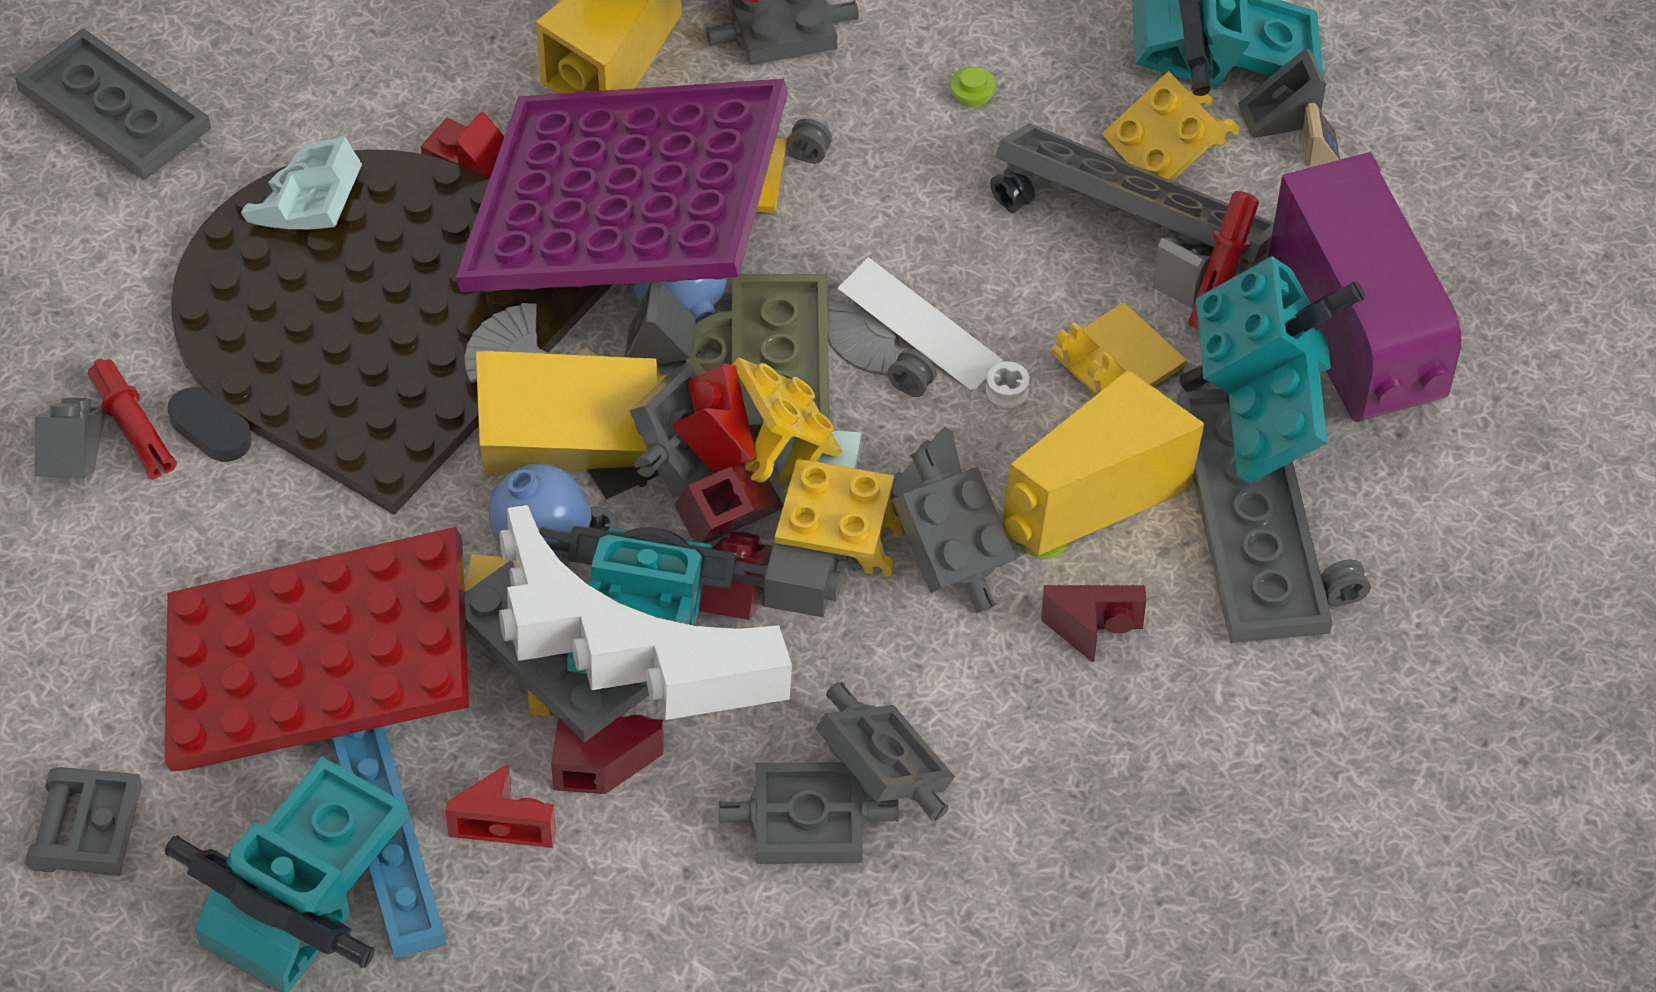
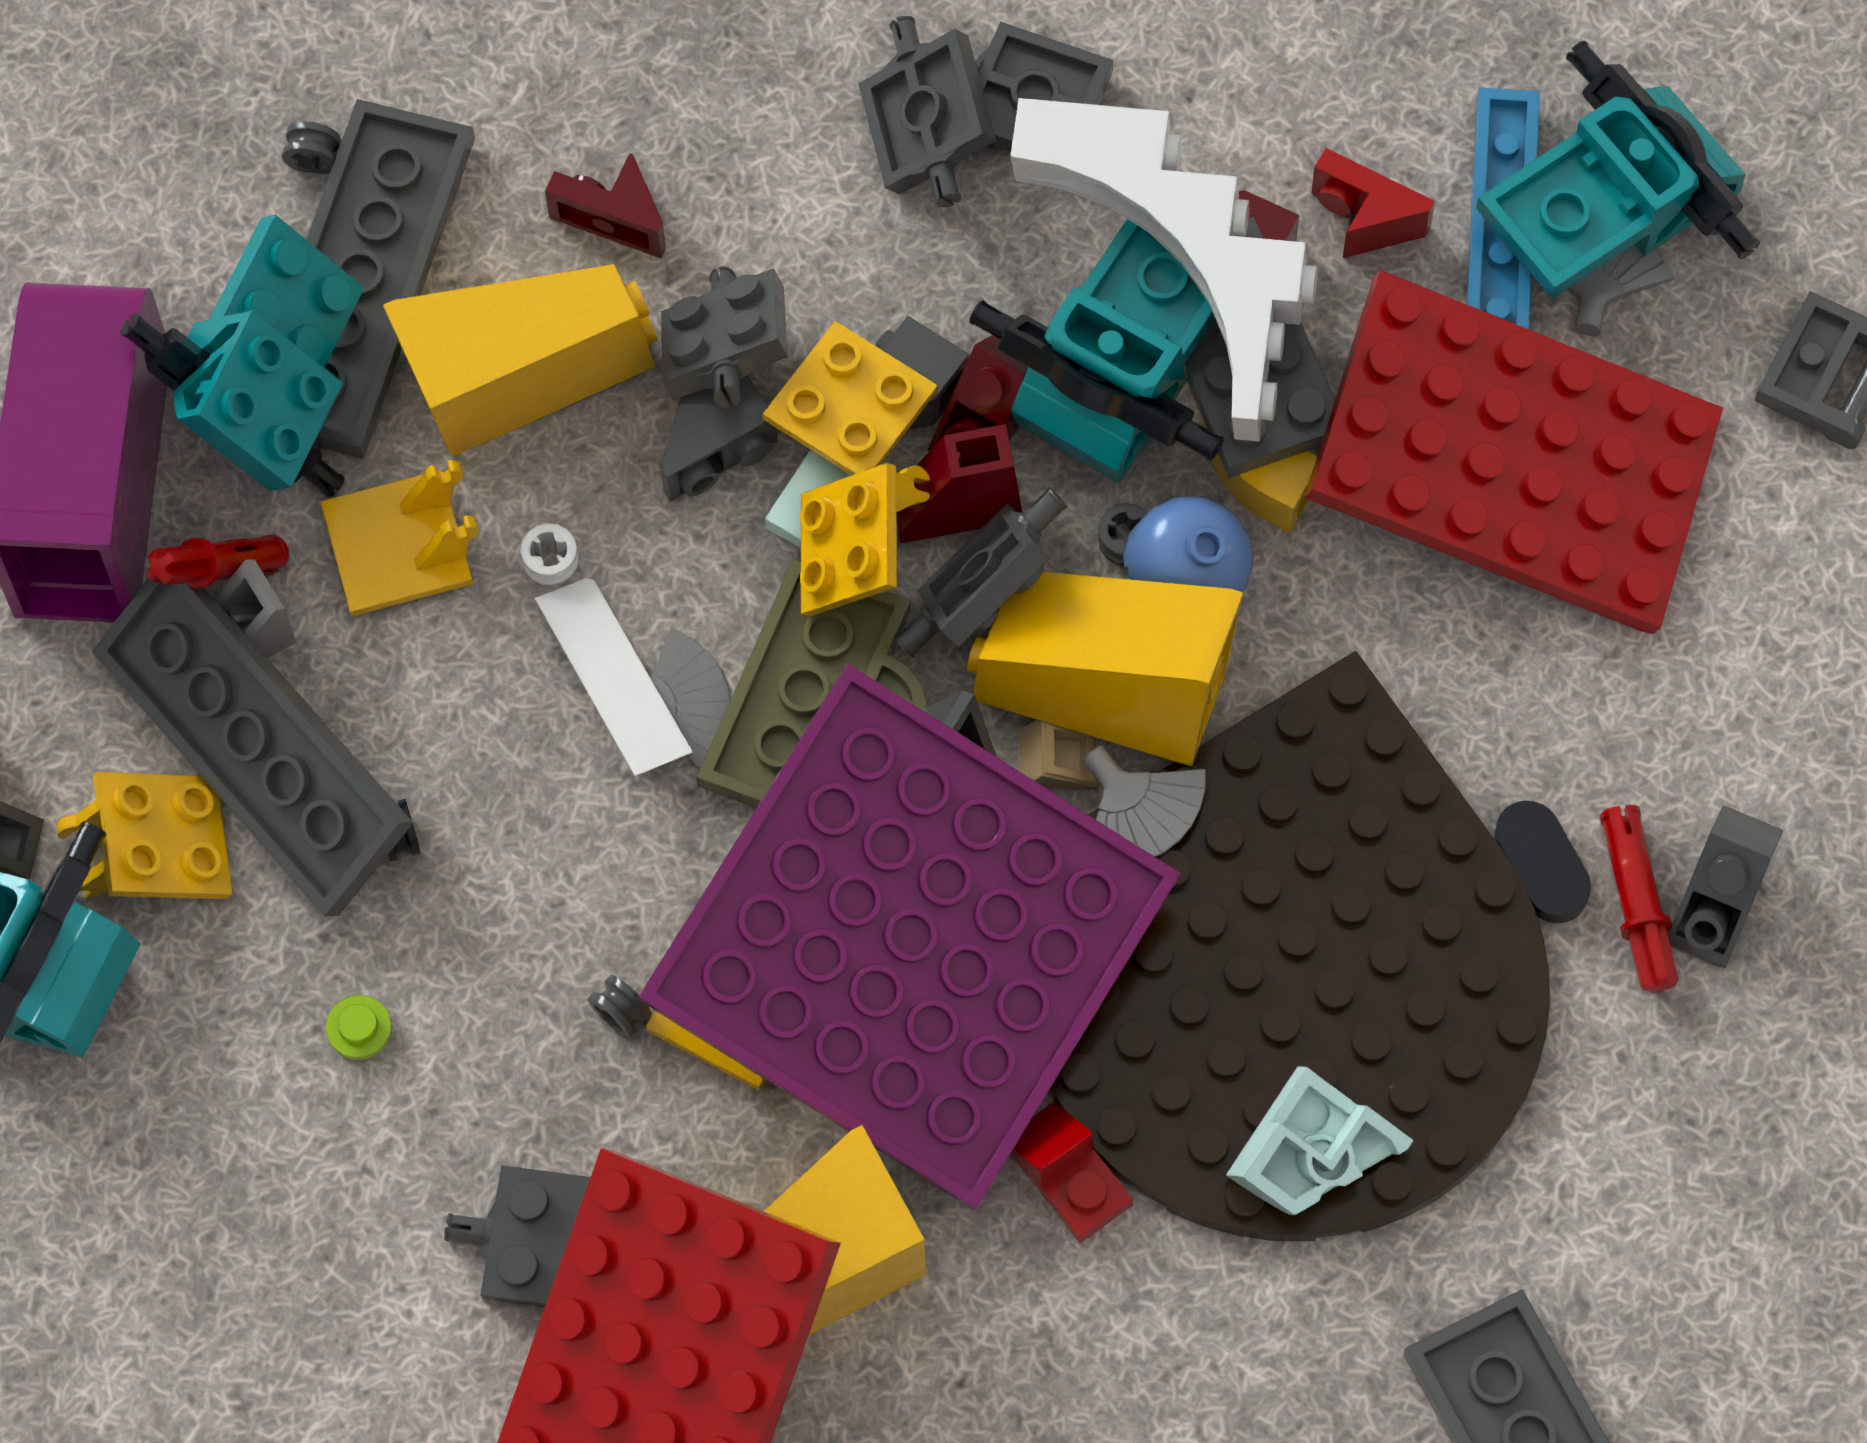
camera: 155 degrees left, 15 degrees up
(720, 424) = (936, 544): red slope -> none
(912, 373) = (659, 602): dark grey bush -> none

